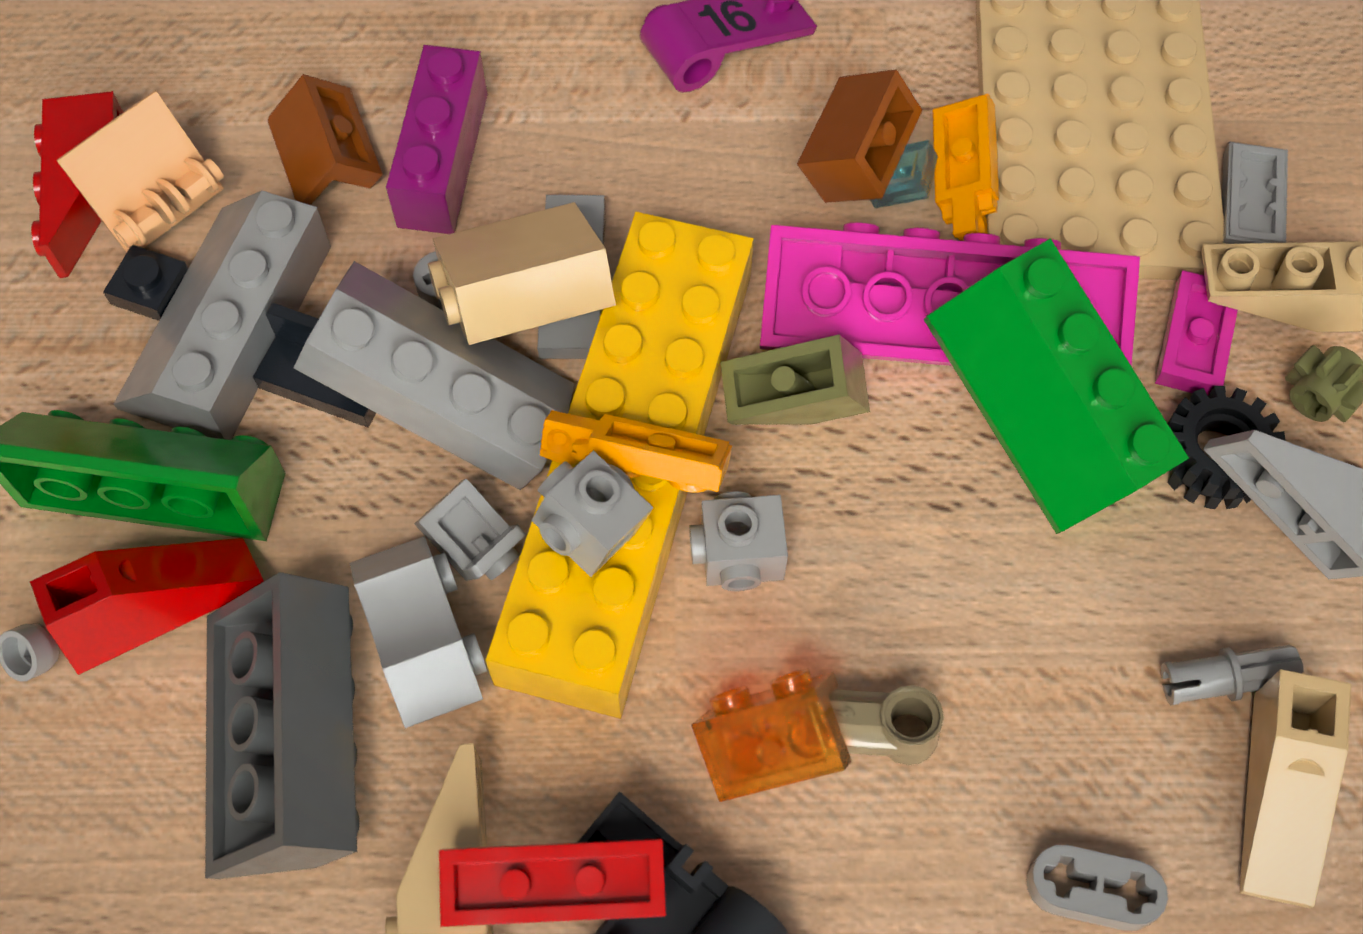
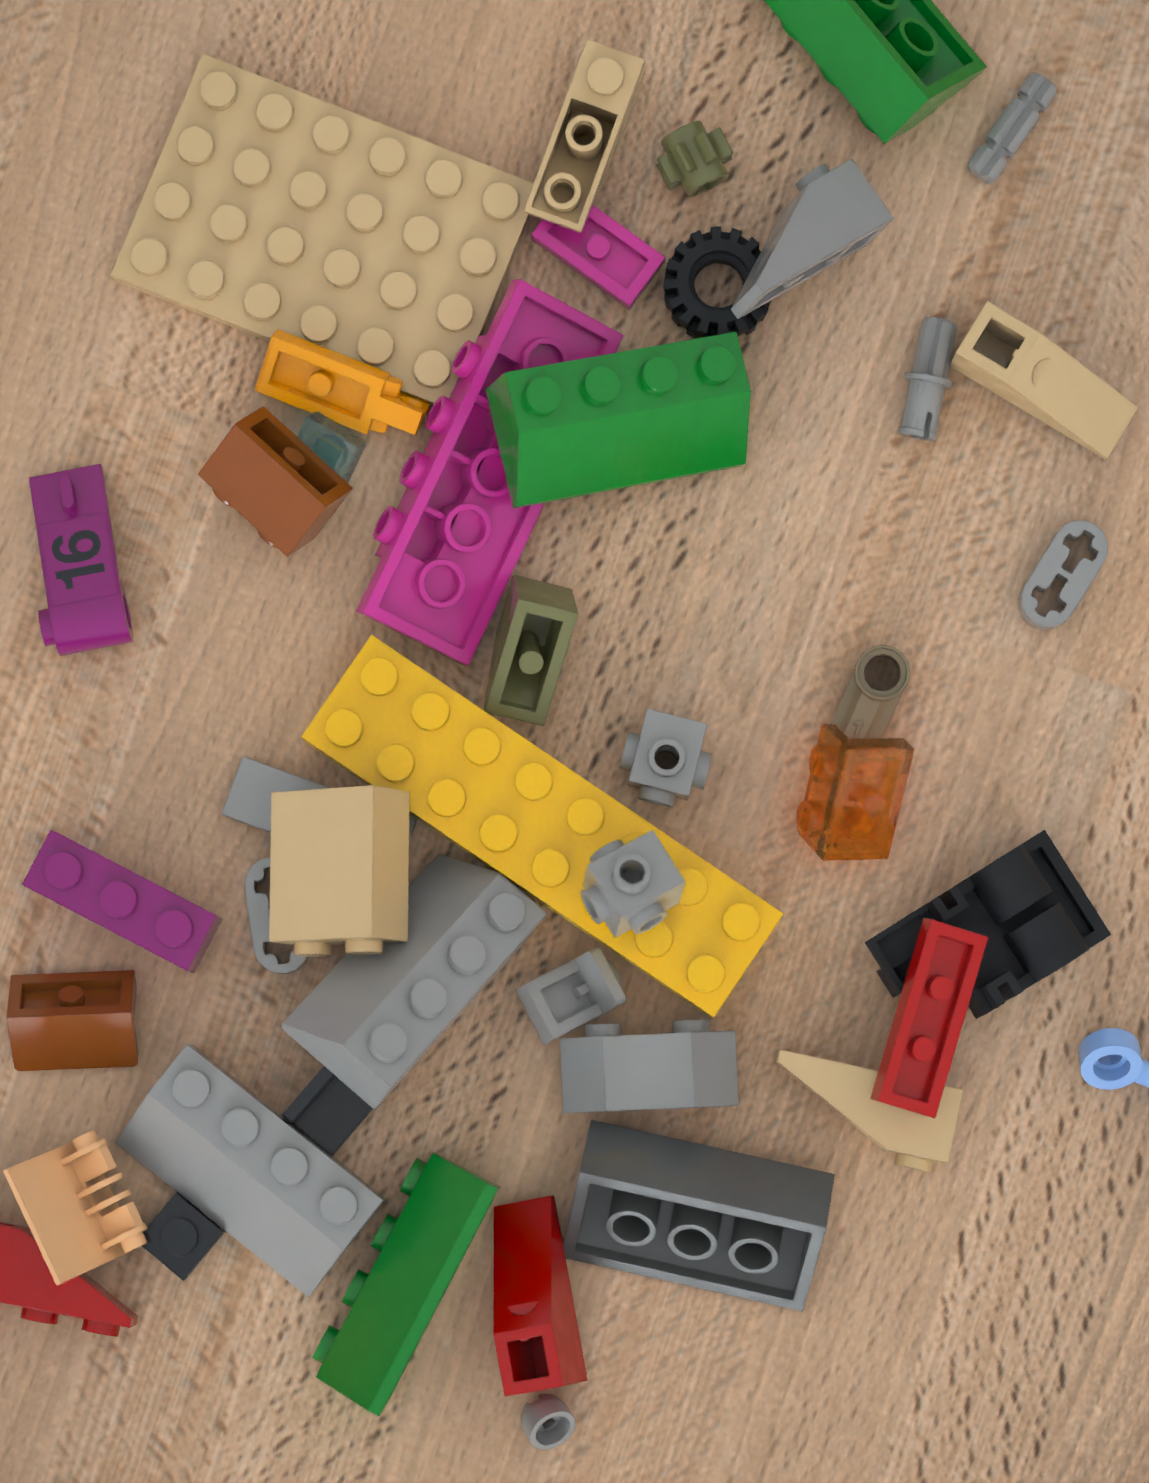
camera: 70 degrees left, 20 degrees up
(638, 449) = (578, 821): light orange hinge -> none
(1254, 194) = (470, 122): light grey plate -> none

